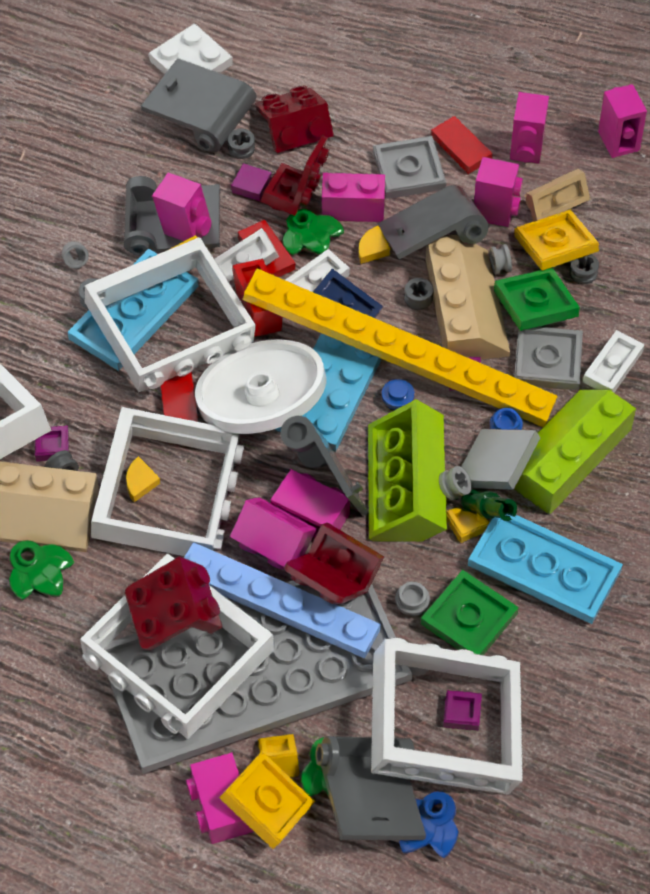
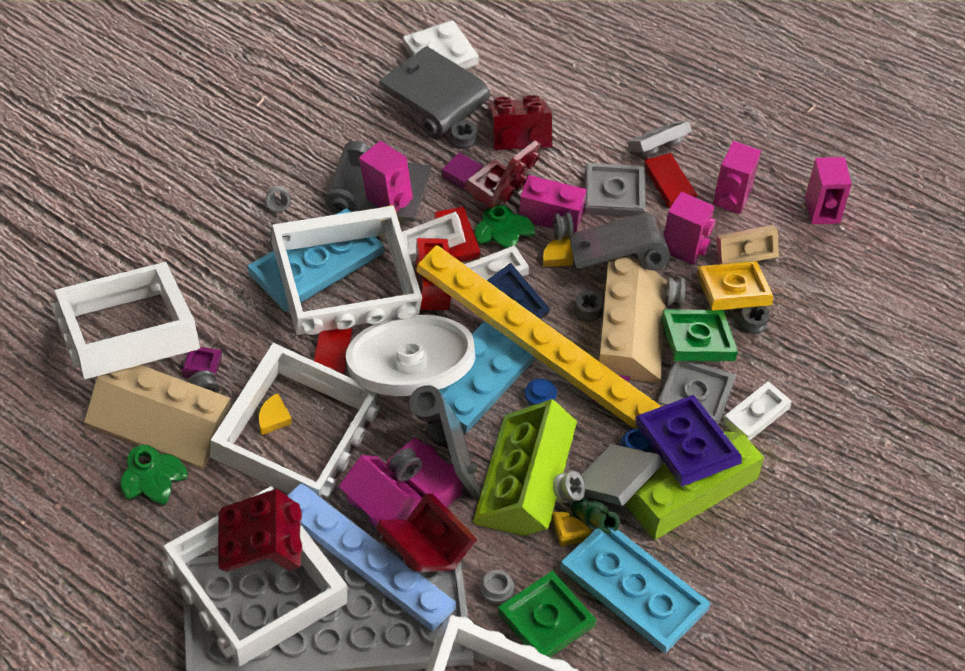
camera: 10 degrees right, 5 degrees down
(291, 499) = (405, 464): none -> dark grey bush
(371, 218) = (563, 226): none -> dark grey bush
(445, 97) = (668, 134): none -> light grey plate
(558, 408) = (688, 440): none -> dark purple tile

